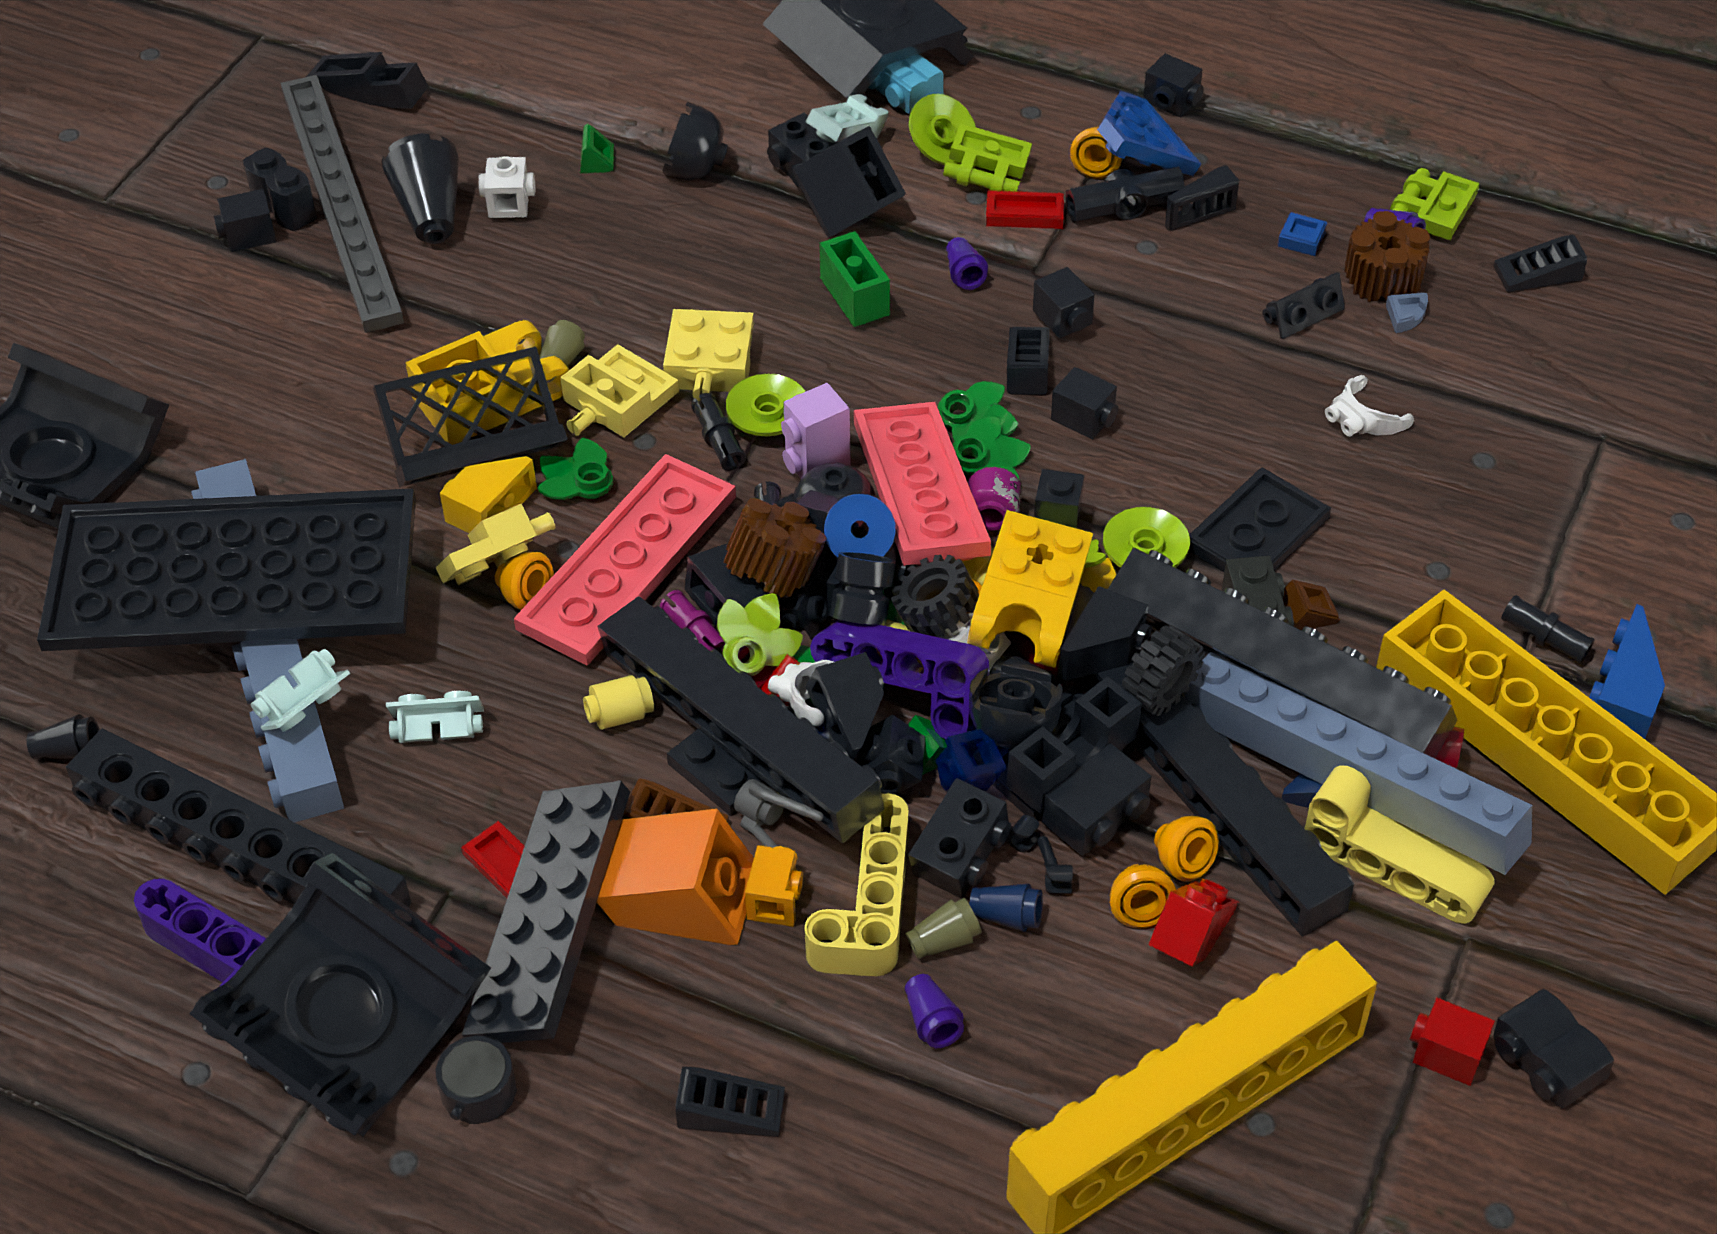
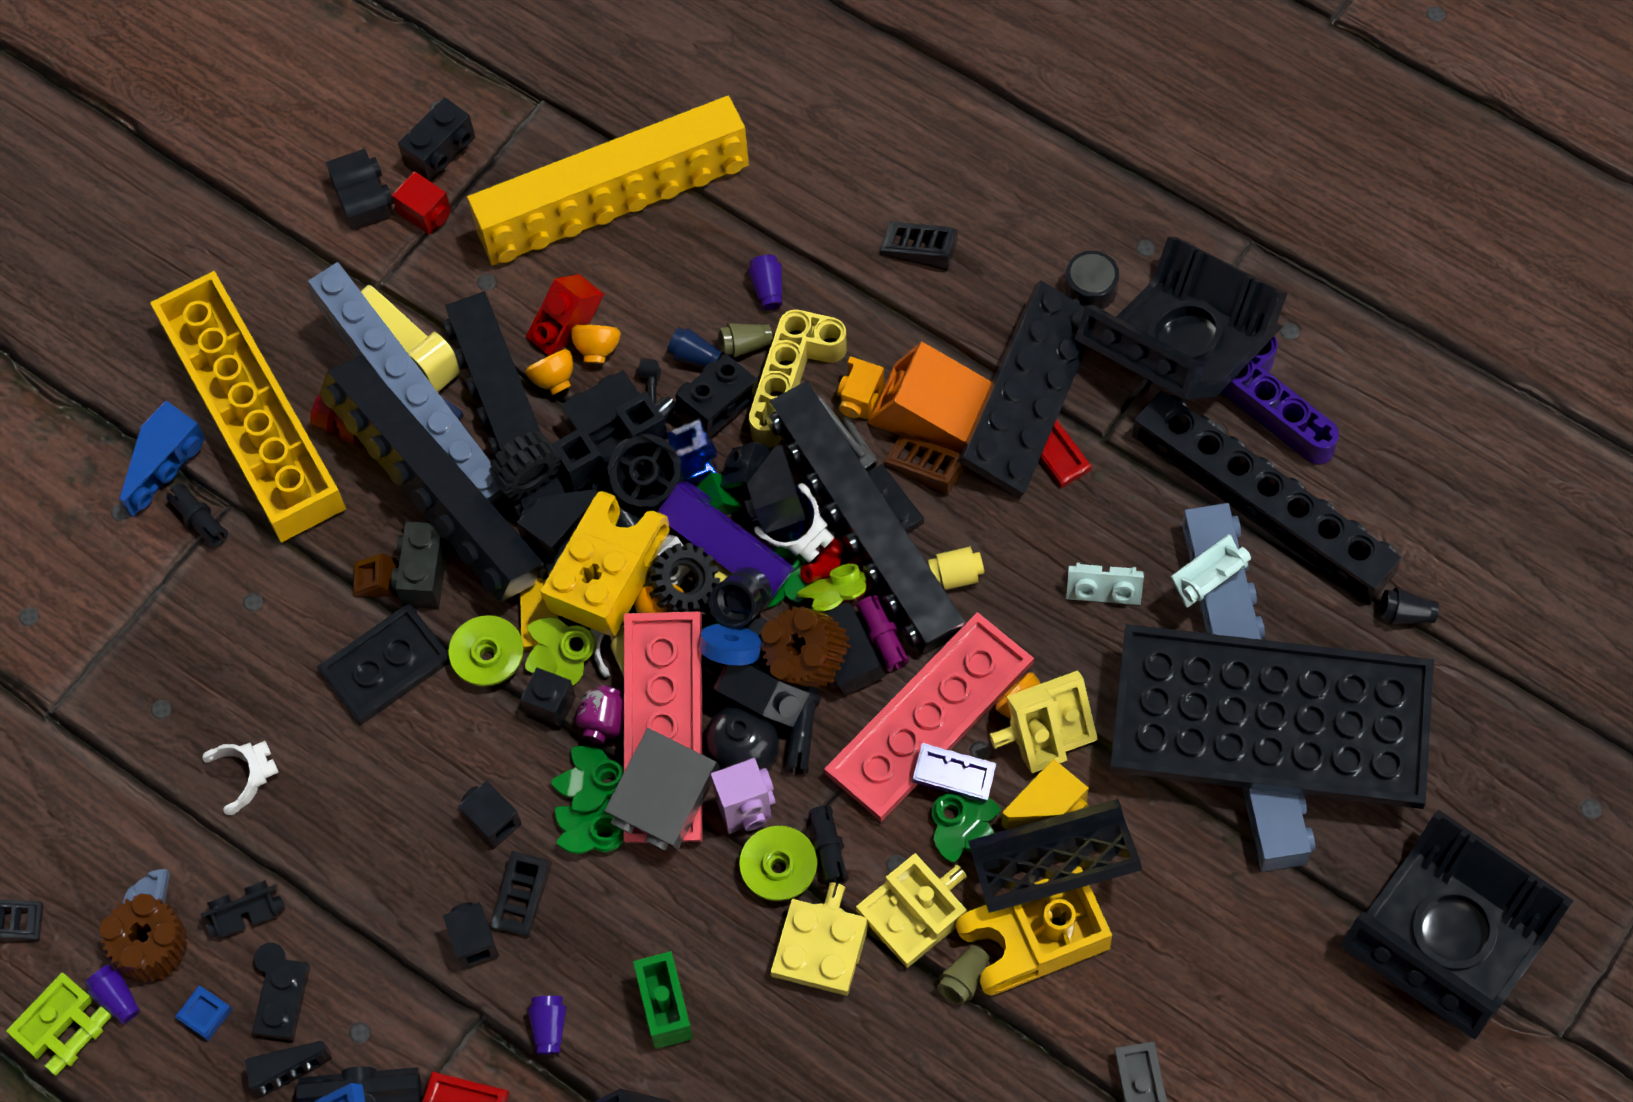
camera: 165 degrees left, 15 degrees up
(591, 496) = (953, 772): none -> plate
(901, 417) = (661, 790): none -> dark grey brick
(1235, 256) = (281, 993): none -> black hinge
(1472, 1133) = (436, 139): none -> black brick

